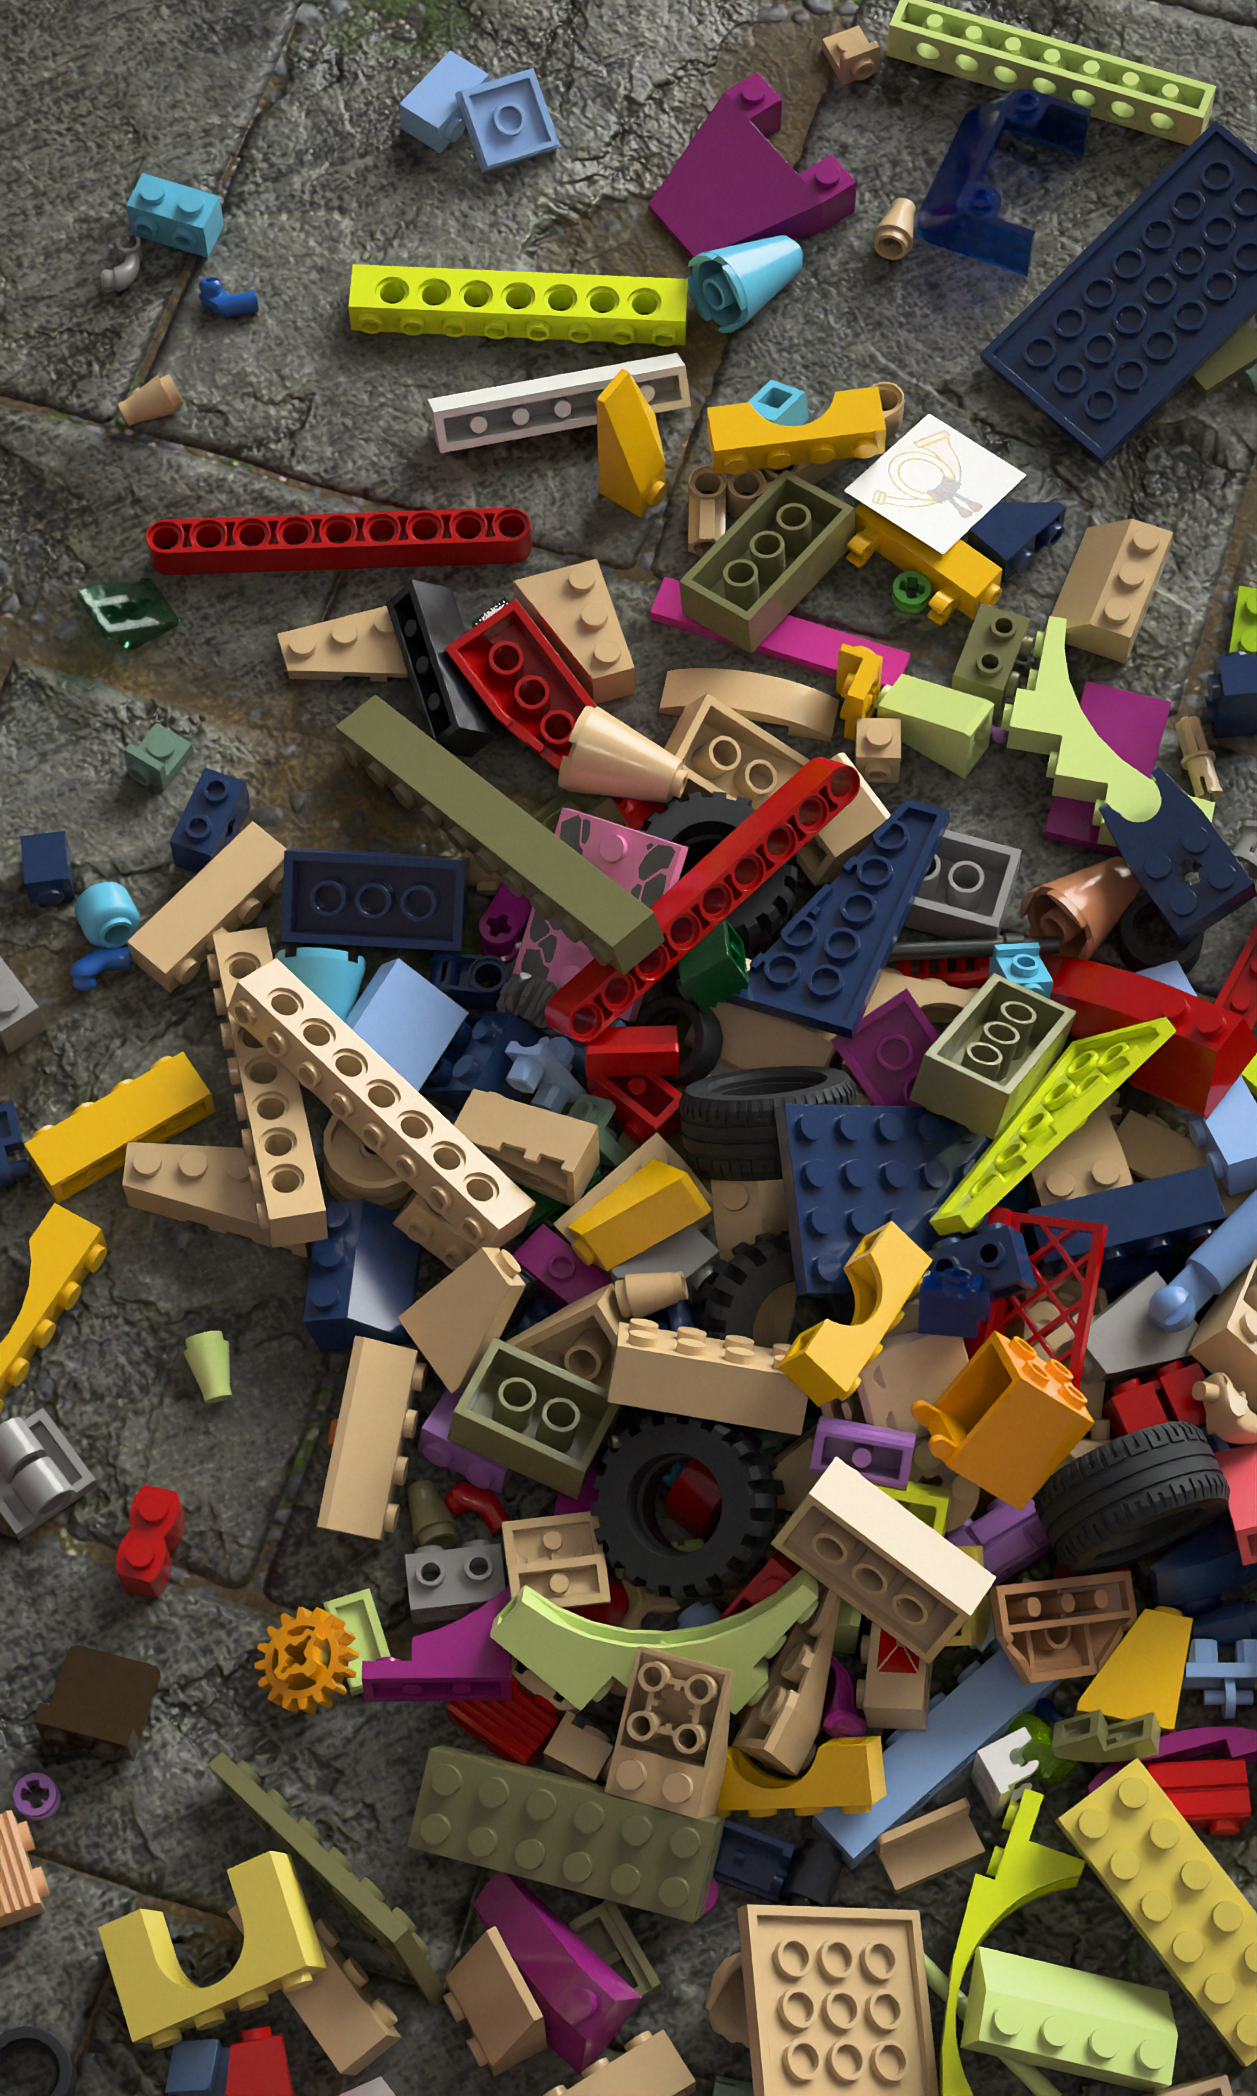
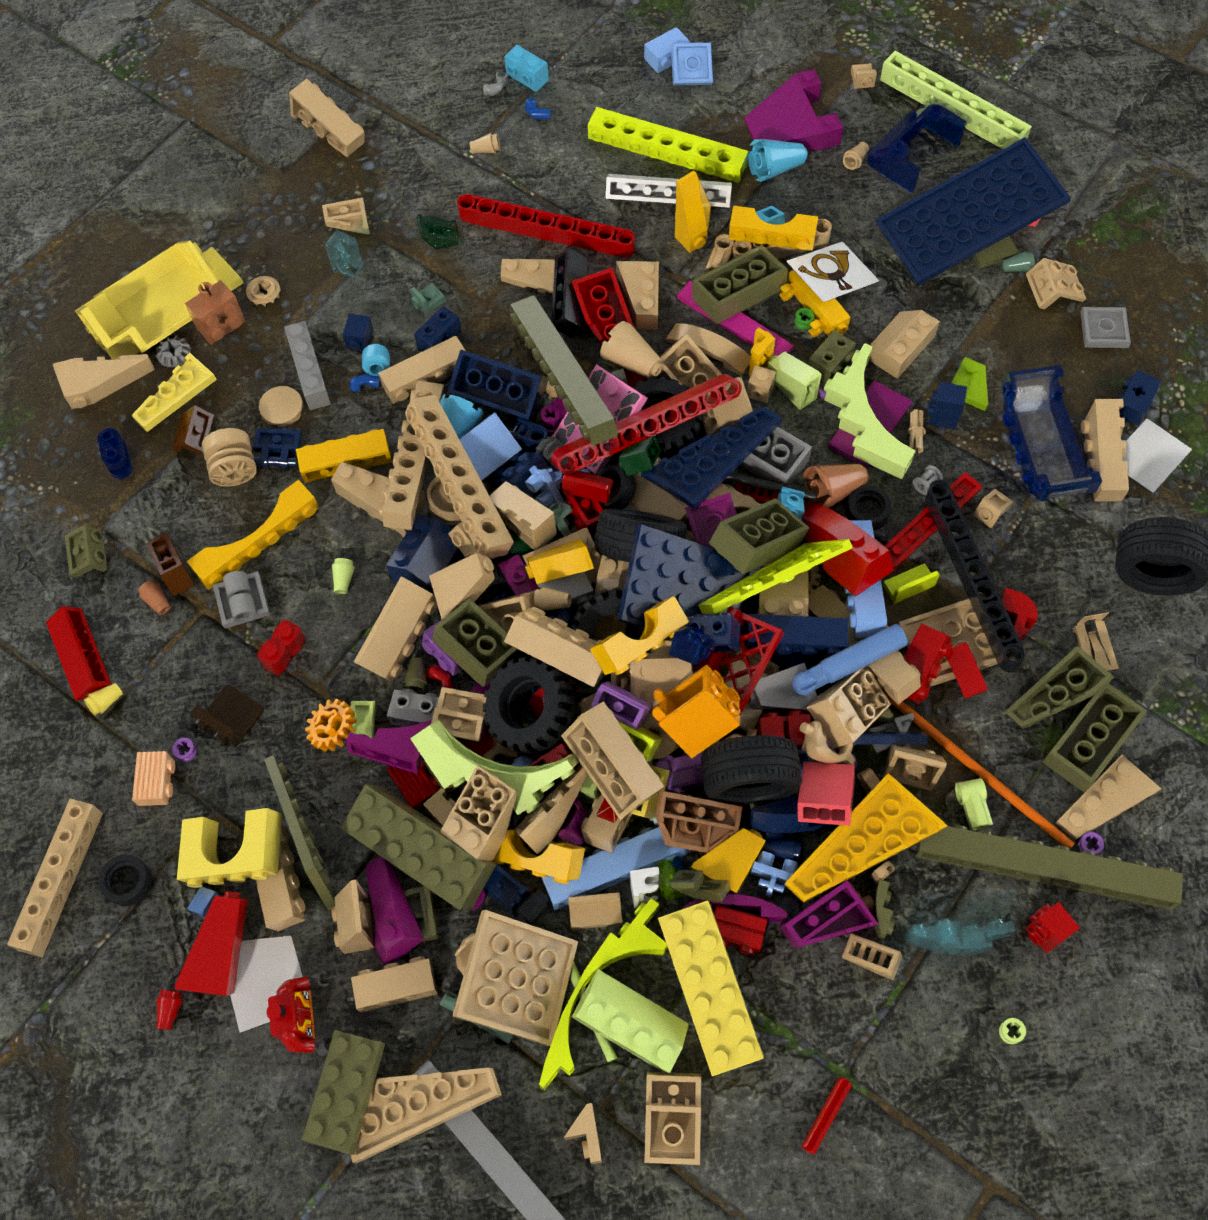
camera: 20 degrees right, 0 degrees up
(1016, 532) = (864, 304): dark blue slope -> none
(1173, 845) = (887, 464): dark blue brick -> none

